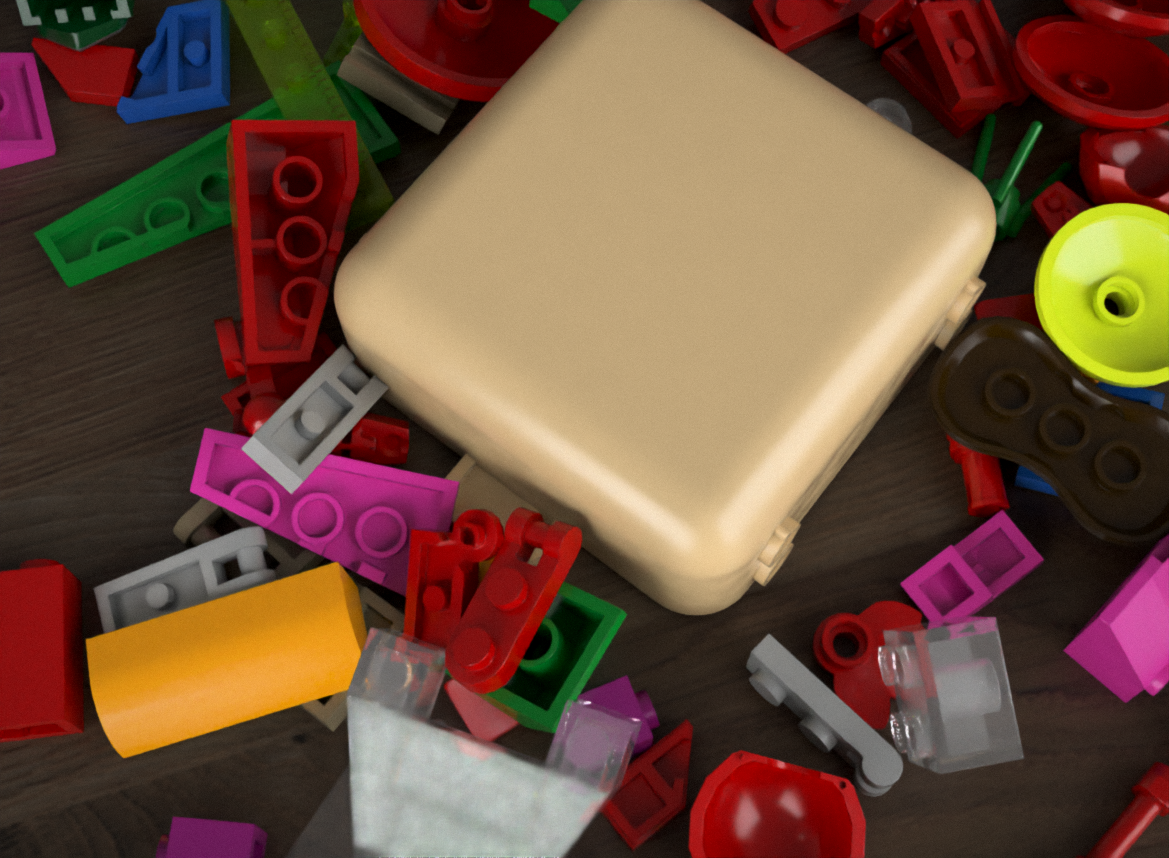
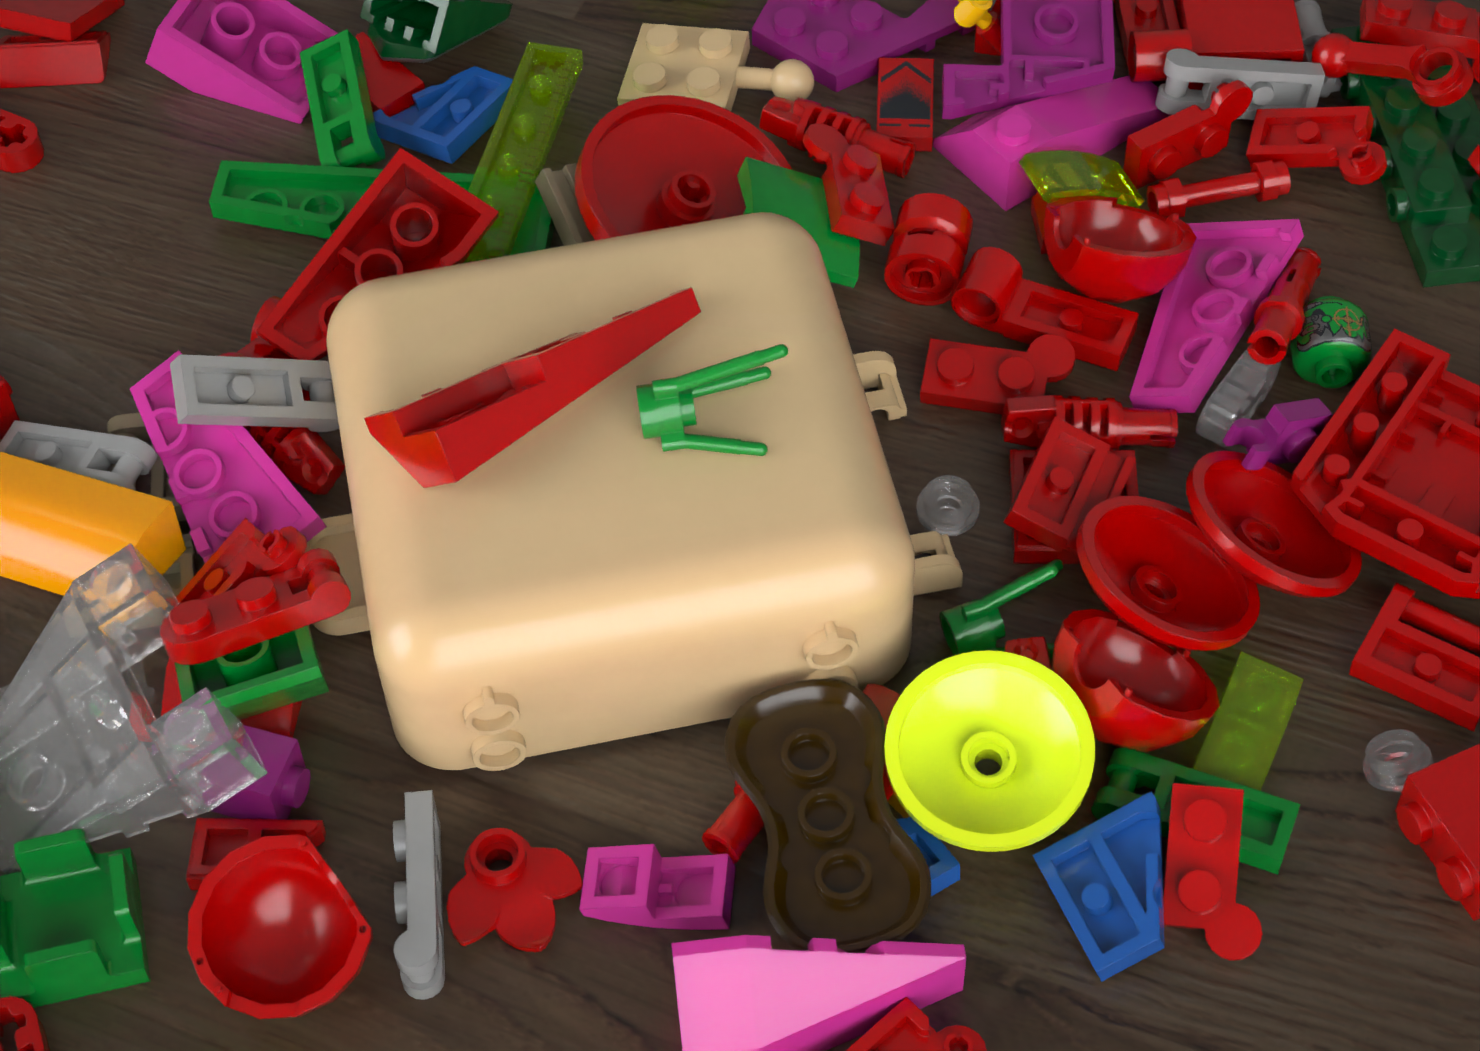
camera: 40 degrees right, 15 degrees down
(87, 113) = (340, 102): none -> green plate
(599, 306) = (481, 415): none -> red wedge
(737, 191) = (669, 405): none -> green plant
(950, 694) = (515, 927): clear brick -> none

